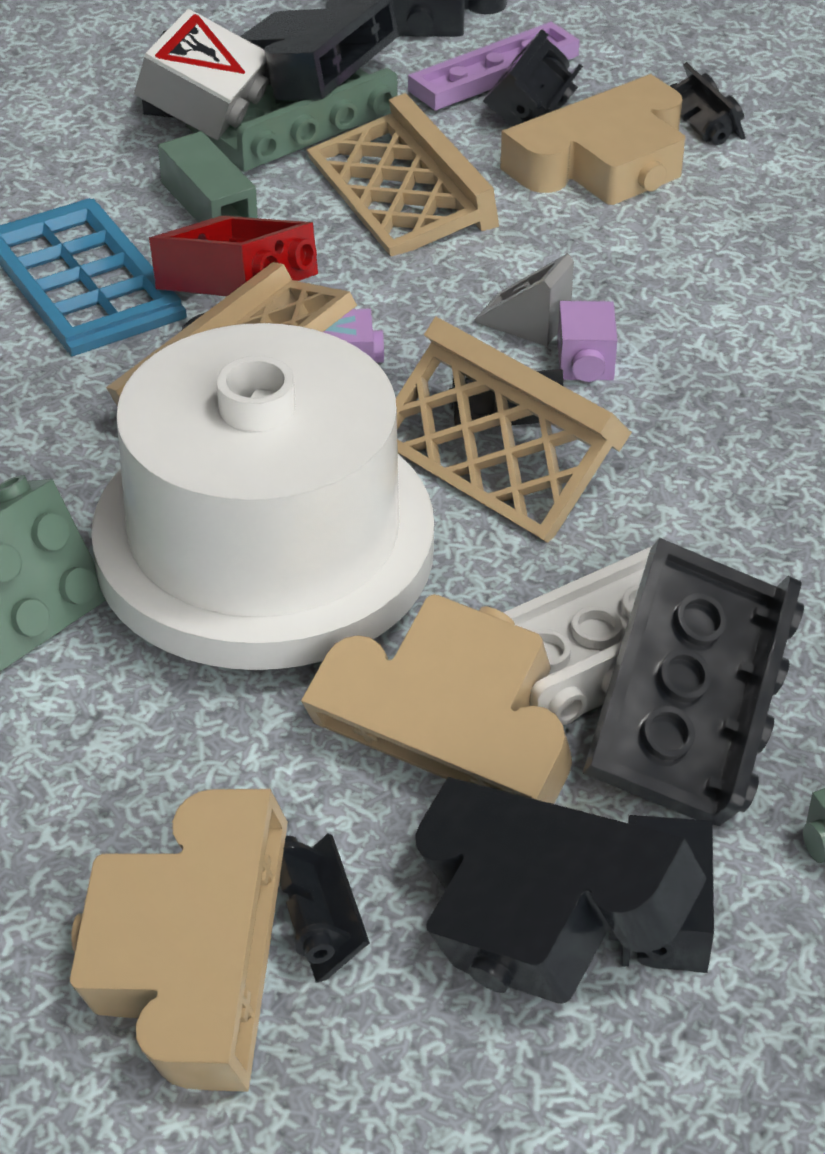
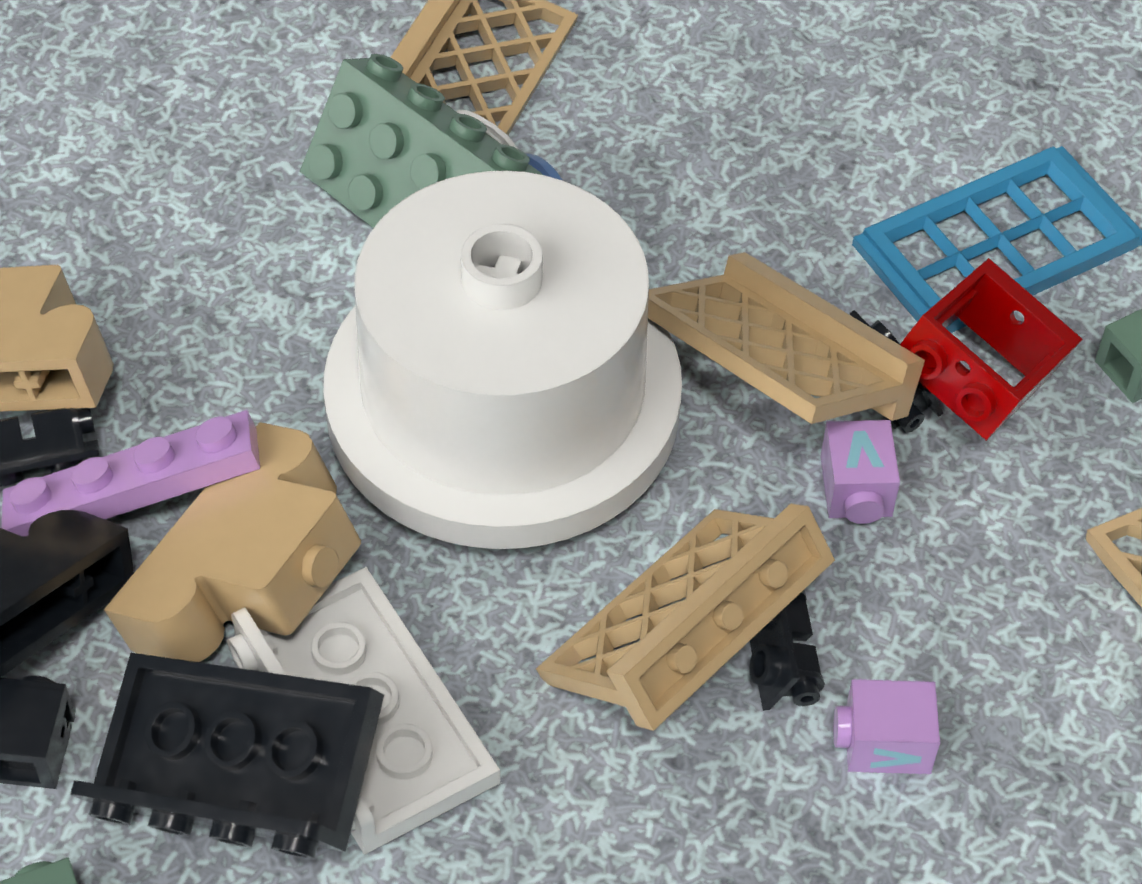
camera: 90 degrees right, 10 degrees up
(369, 805) = (140, 474): none -> lavender plate
(532, 304) = (965, 672): light grey slope -> none

